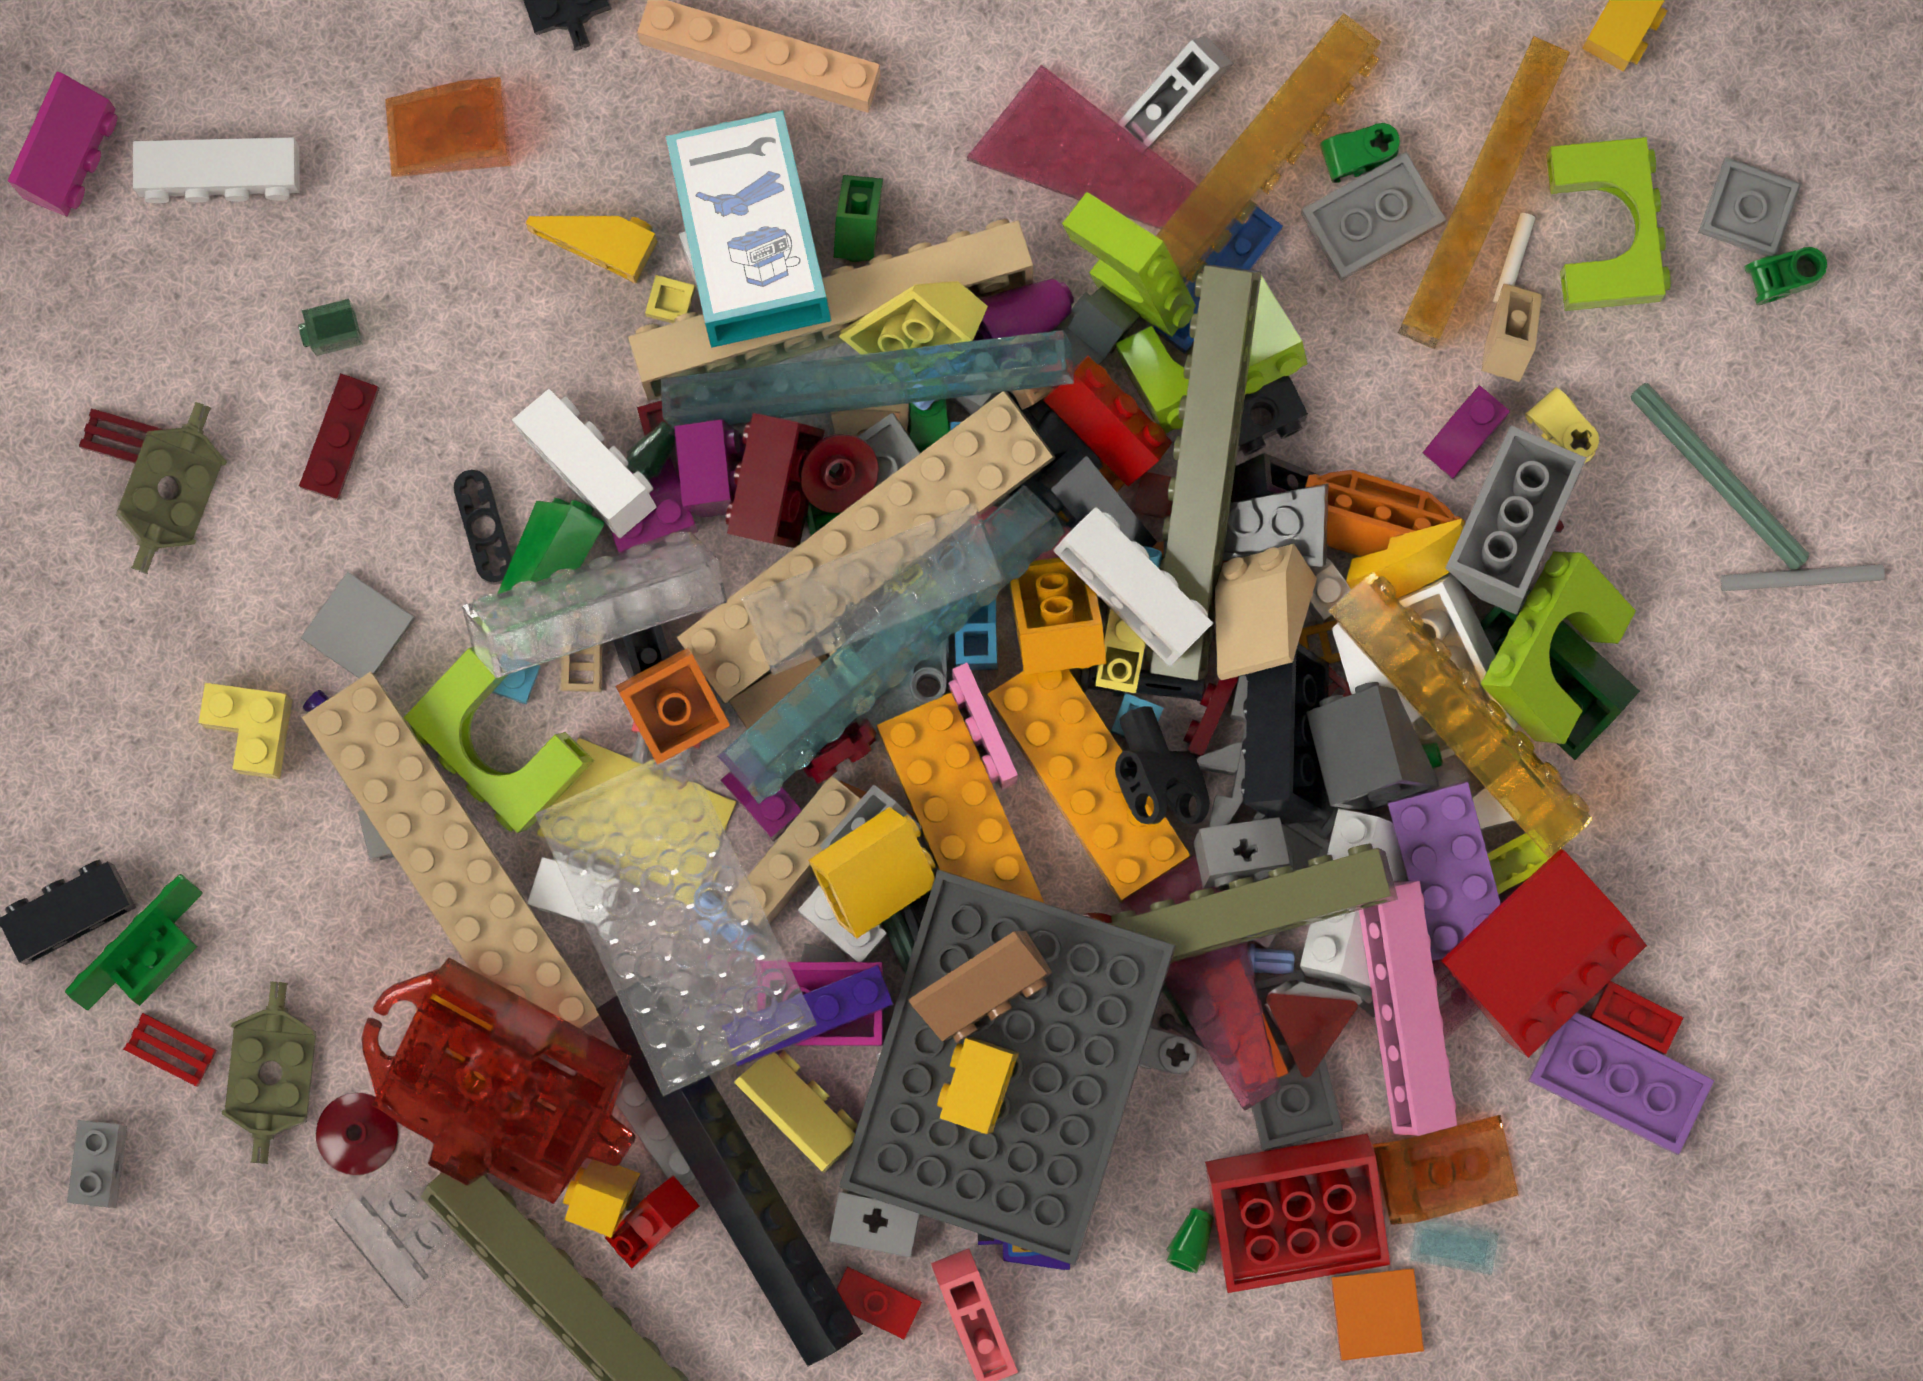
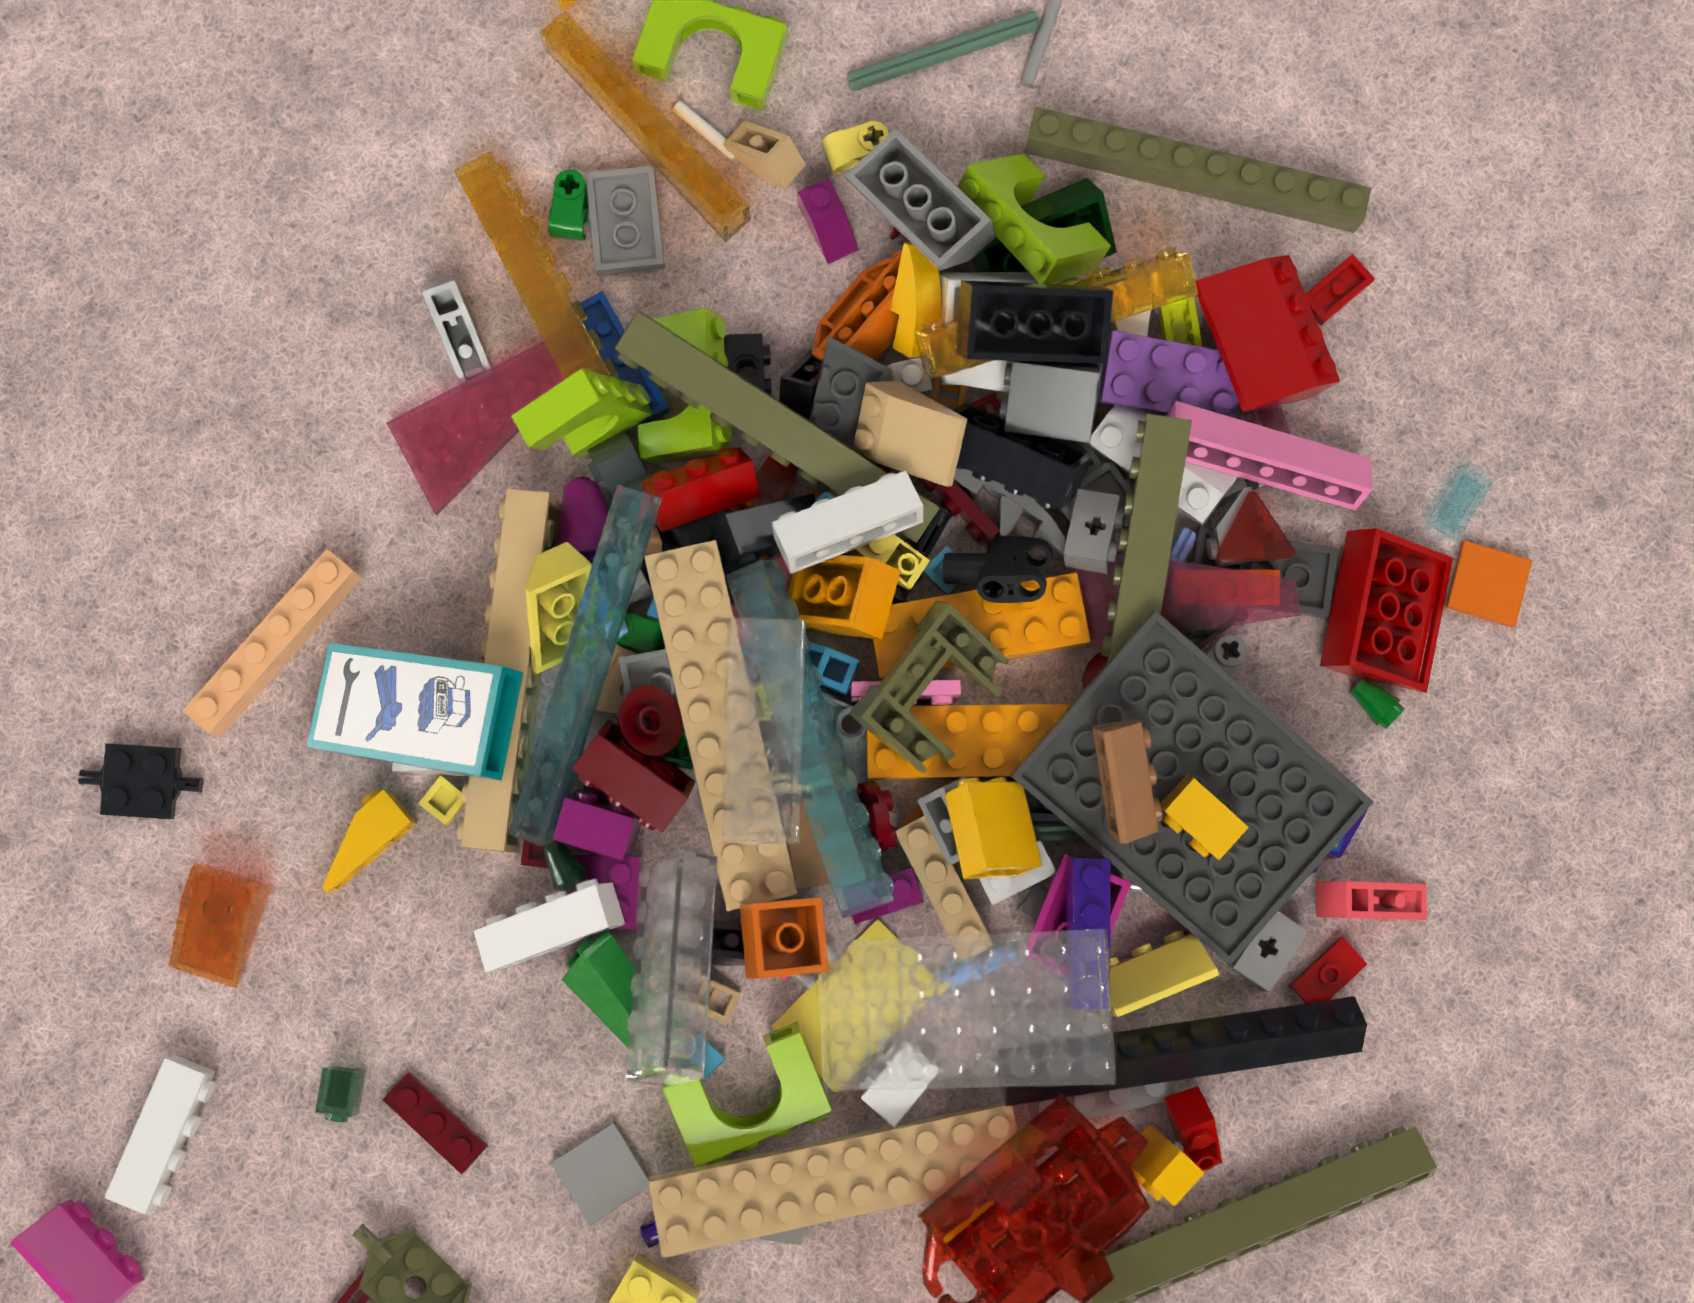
camera: 70 degrees left, 0 degrees up
(464, 501) = (538, 1021): black beam -> none
(857, 218) = (445, 620): green slope -> none
(1054, 734) = (886, 708): none -> olive wedge
(1428, 688) = (1034, 322): none -> black brick
(1445, 1170) = (1404, 484): clear orange slope -> none
(1622, 1082) = (1384, 320): medium lavender plate -> none
(1702, 807) = (1197, 170): none -> olive brick

